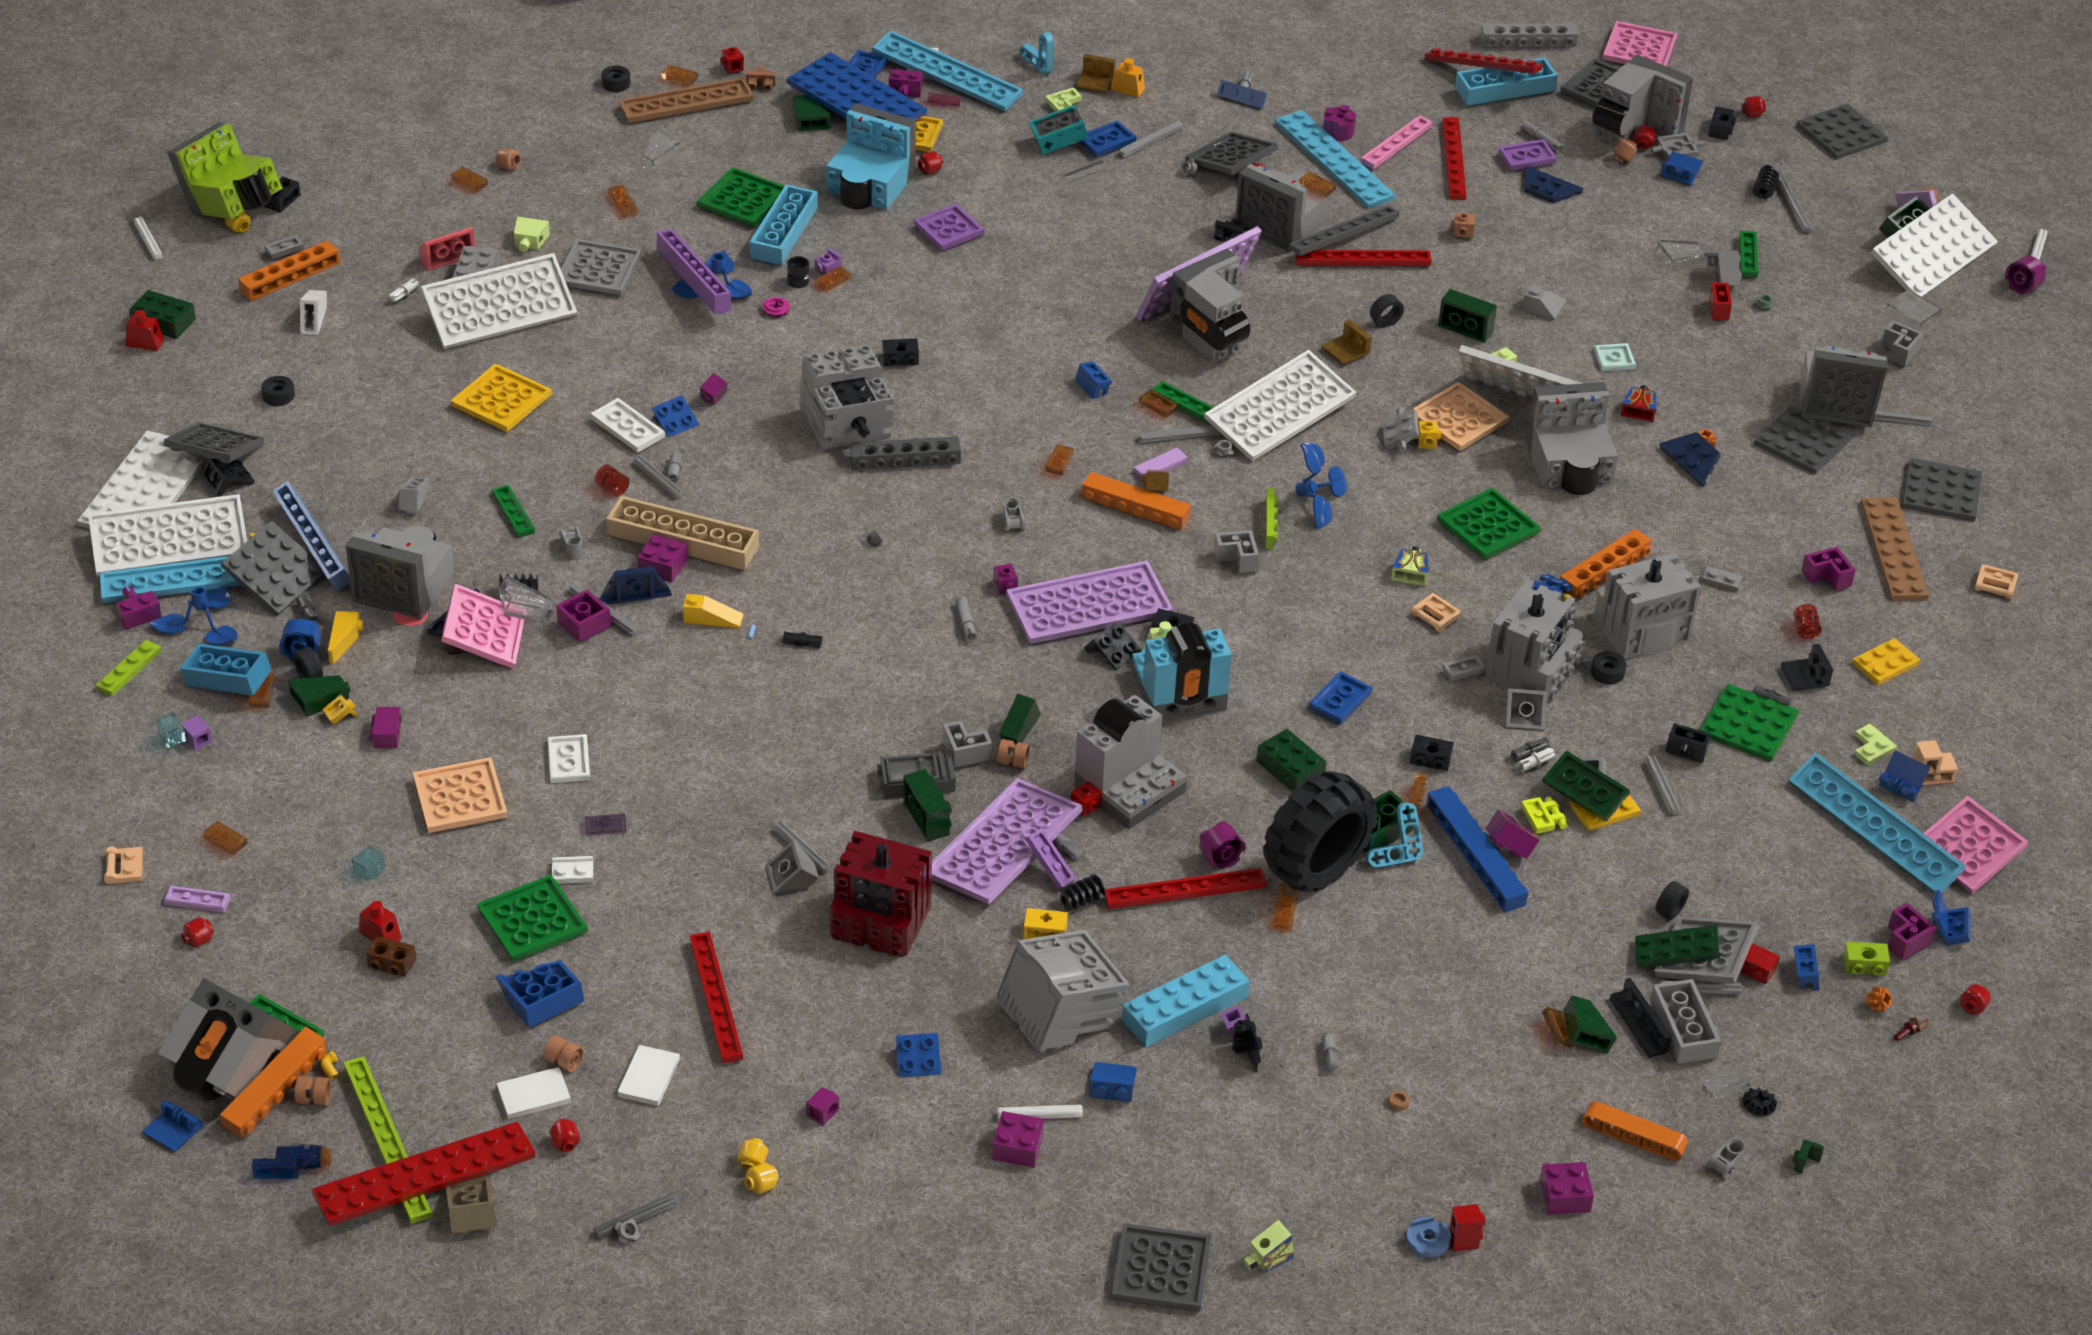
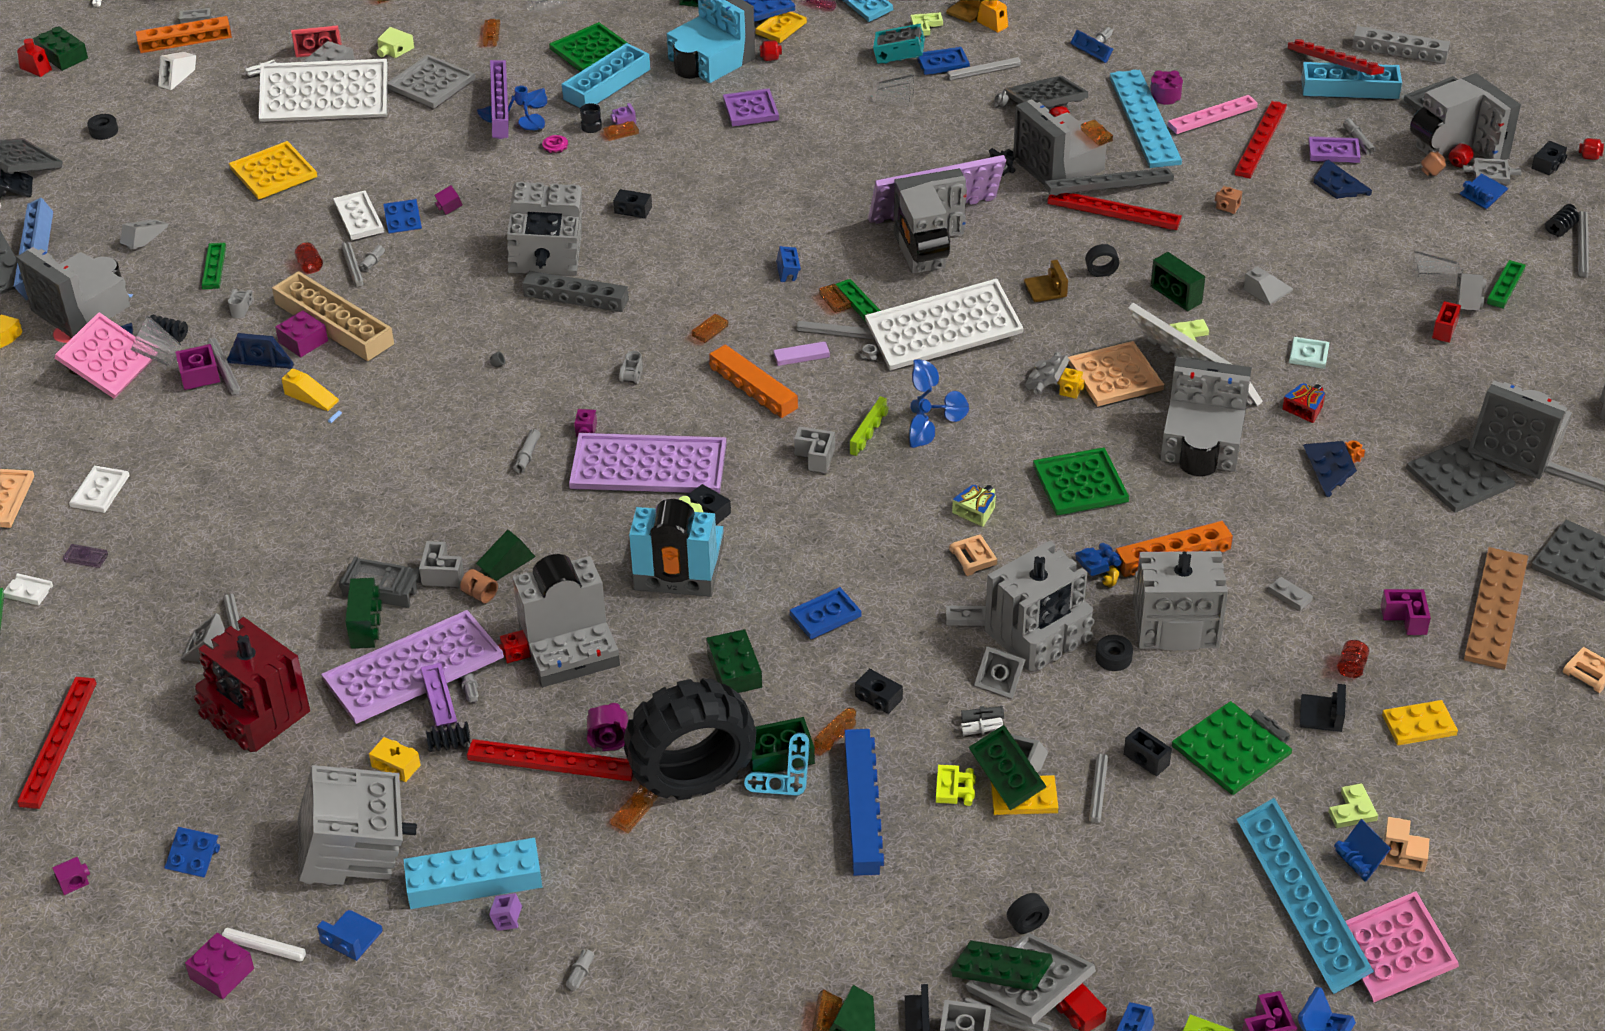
camera: 25 degrees right, 0 degrees up
(802, 639) = (371, 433): black pin -> none
(1115, 645) = (643, 498): black bracket -> none
(1156, 480) = (780, 365): pearl gold brick -> none
(1247, 1041) = (499, 931): black hinge -> none
(1510, 834) = (900, 797): magenta brick -> none
(1633, 39) = (1511, 73): bright pink plate -> none
(1764, 301) = (1497, 332): sand green plate -> none

